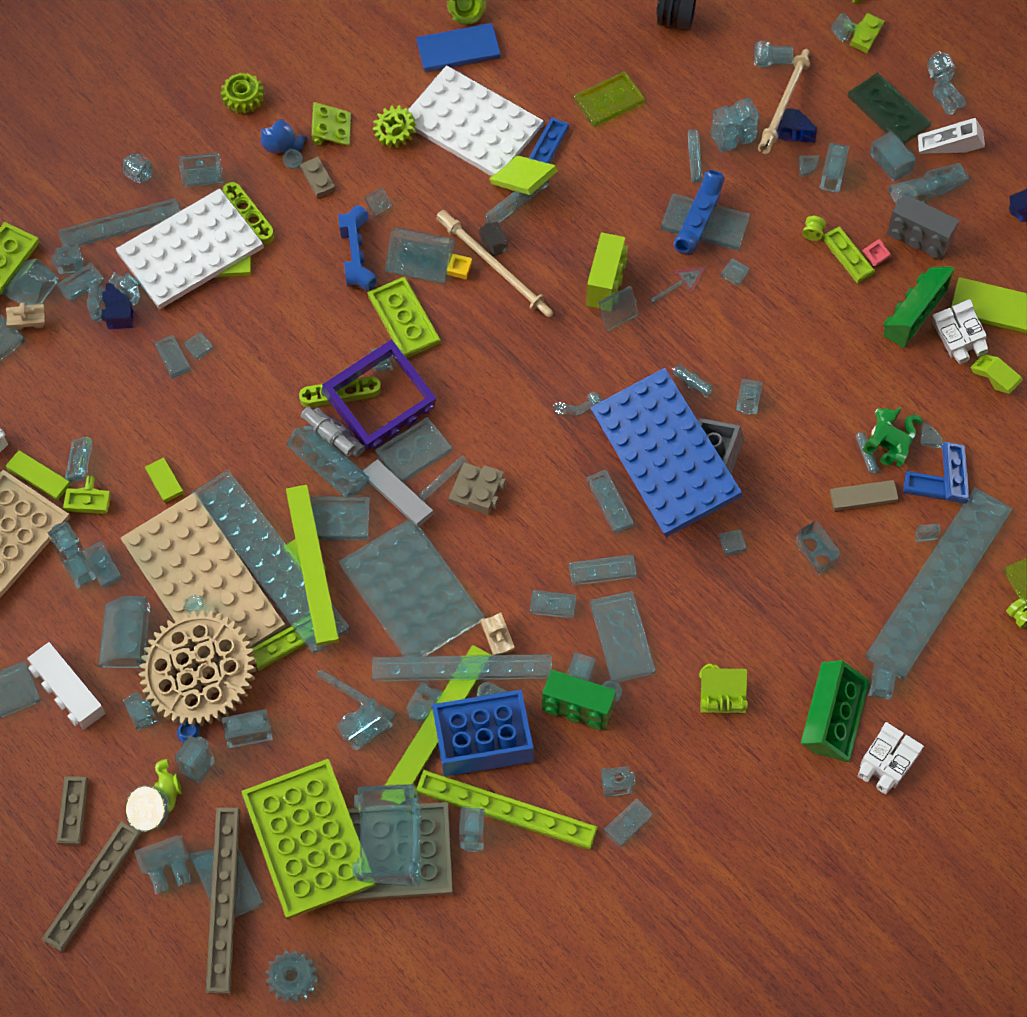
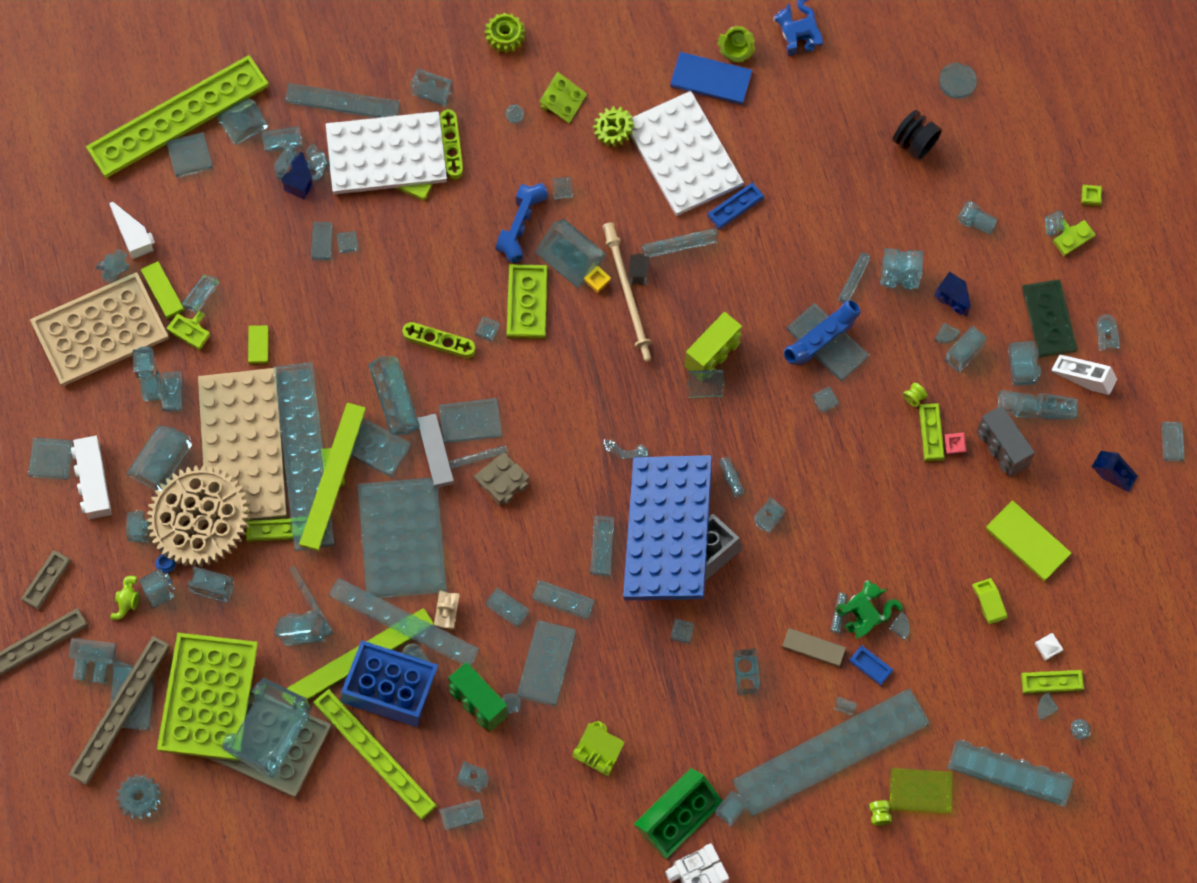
camera: 25 degrees right, 5 degrees up
(25, 316) = (222, 148): tan hips -> none
(68, 259) = (286, 117): clear light blue brick -> none
(137, 168) = (381, 59): clear light blue head -> none
(146, 808) = (101, 608): tile -> none
(193, 603) = (223, 461): clear light blue plate -> none
(281, 138) = (513, 91): blue hair -> none
(317, 177) = (526, 140): dark tan plate -> none
(332, 431) = (411, 372): light grey pin -> none
(359, 368) = (459, 330): dark purple window -> none
(417, 707) = (351, 636): clear light blue plate -> none
(472, 829) = (336, 756): clear light blue brick -> none
(523, 175) = (695, 225): lime tile -> none
(582, 666) = (496, 673): clear light blue brick -> none
(609, 98) = (812, 189): clear neon green tile -> none
(688, 277) = (783, 383): clear light blue piece -> none
(770, 135) = (921, 294): tan bar -> none
(917, 305) = (959, 508): green slope -> none
(941, 66) = (1117, 302): clear light blue head -> none
(955, 472) = (901, 667): blue tile -> none
(960, 331) = (979, 556): white hips -> none

